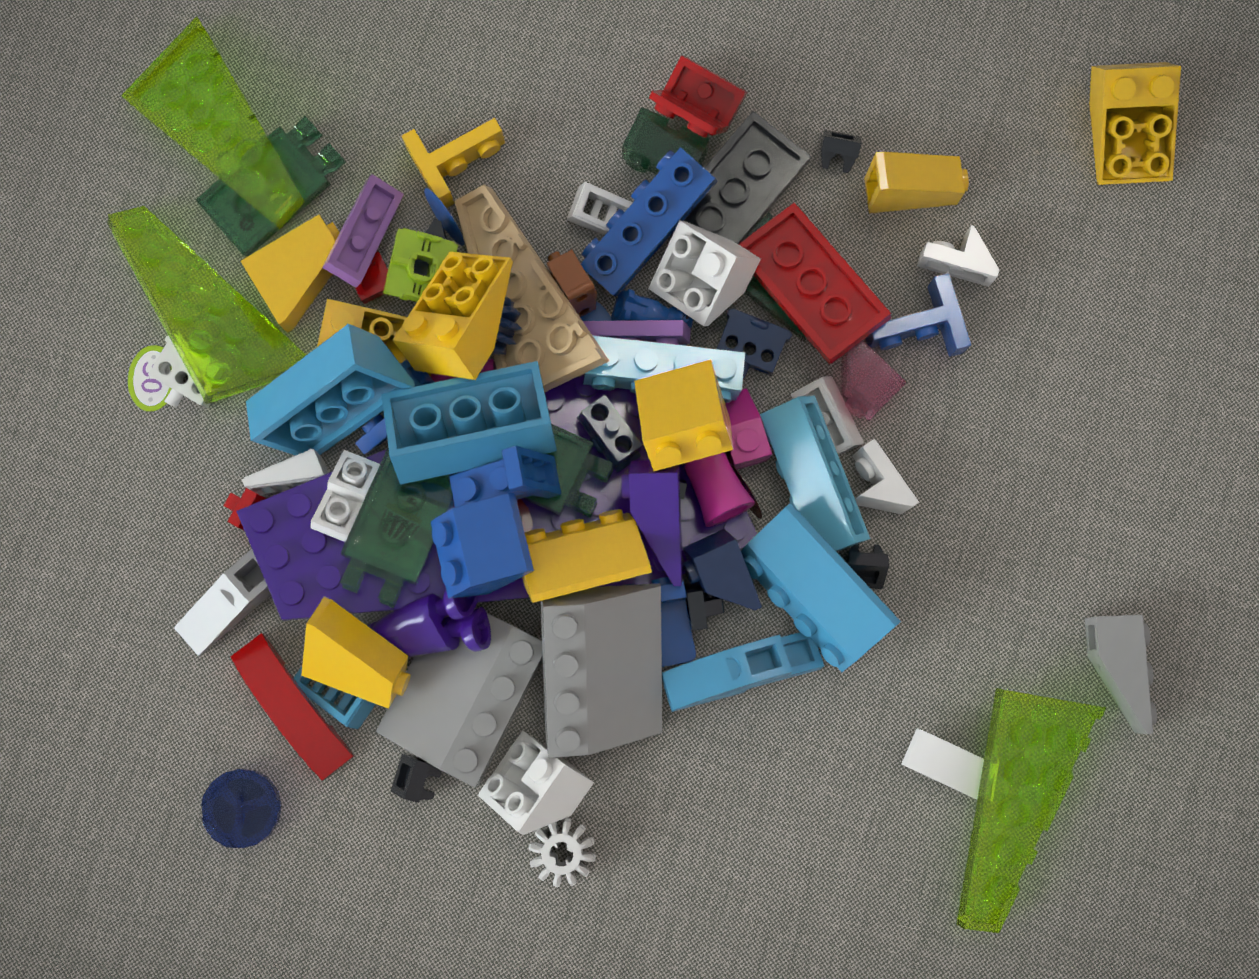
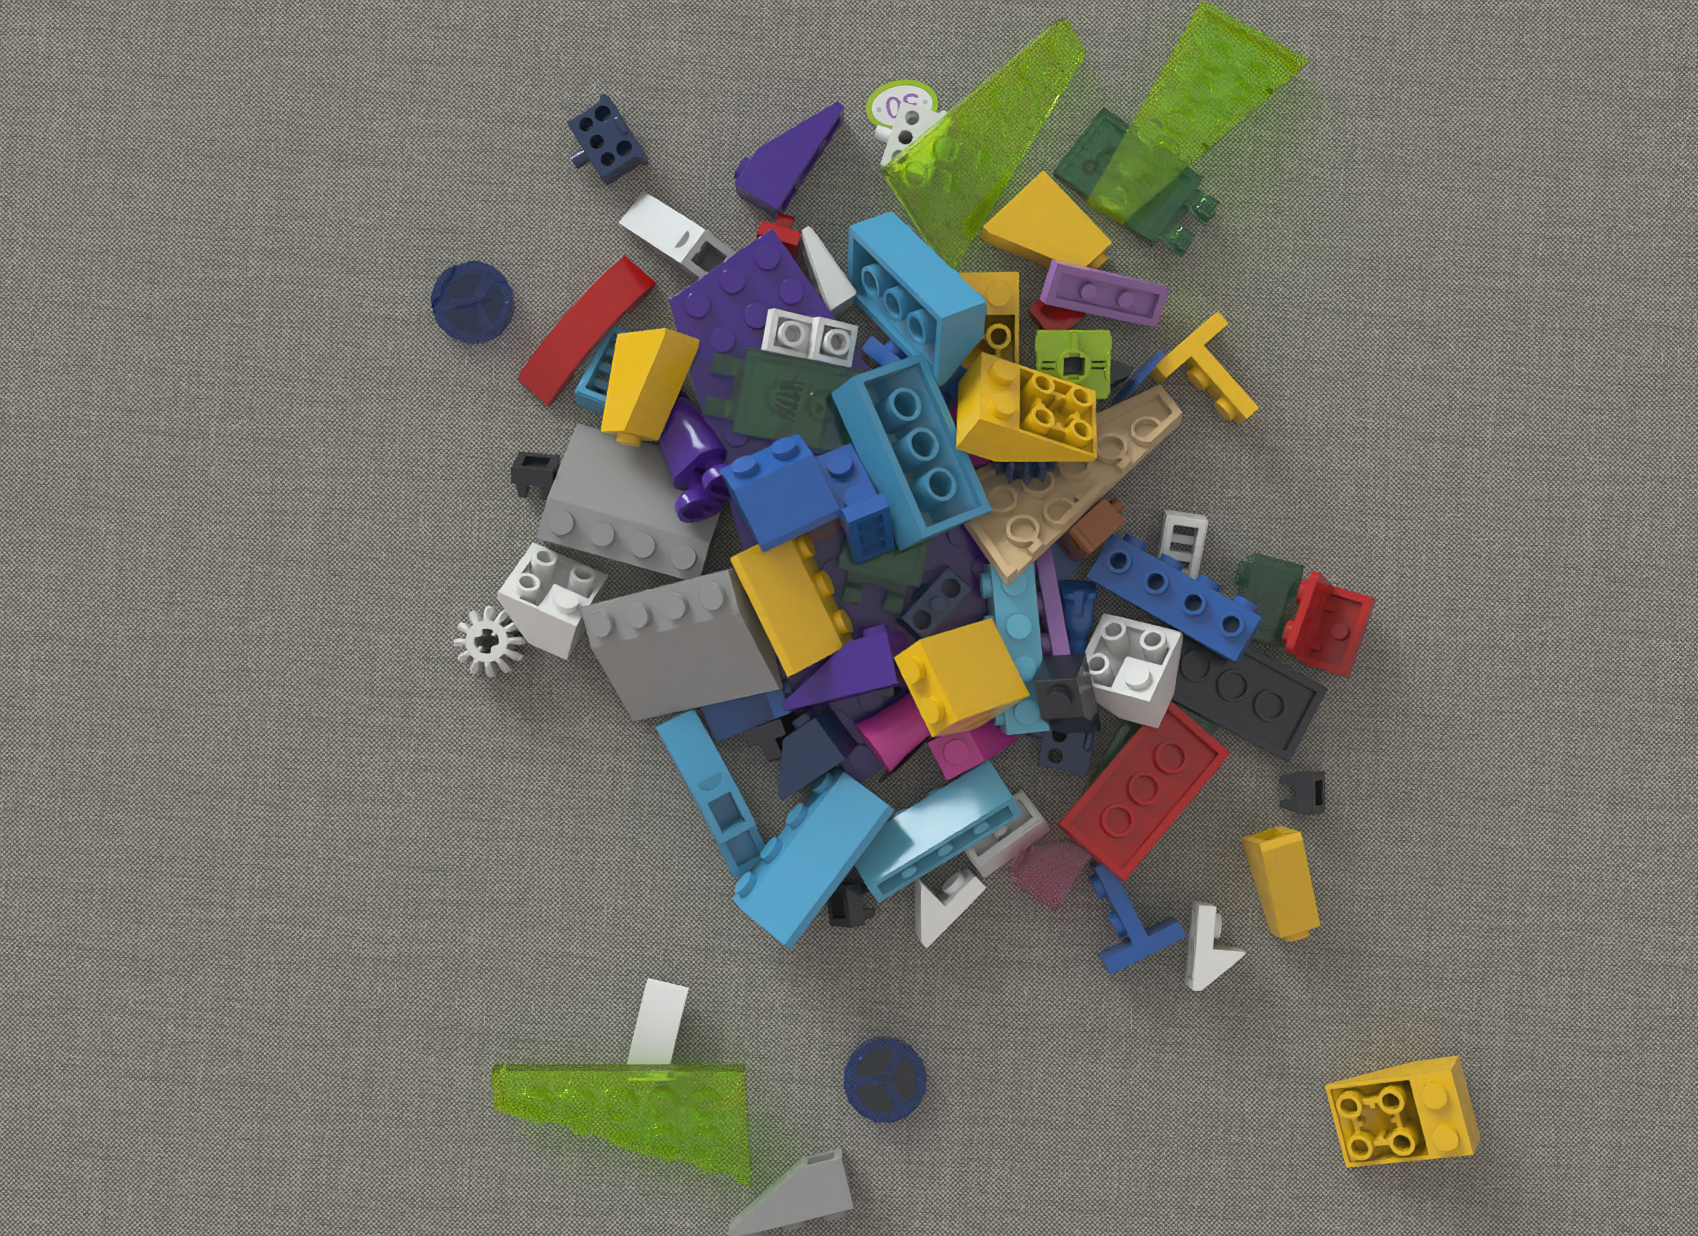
camera: 75 degrees right, 5 degrees up
(109, 646) = (616, 135): none -> dark blue piece
(178, 492) = (784, 163): none -> dark purple slope
(715, 329) = (1067, 694): none -> black slope
(1029, 566) = (885, 1079): none -> clear blue tile

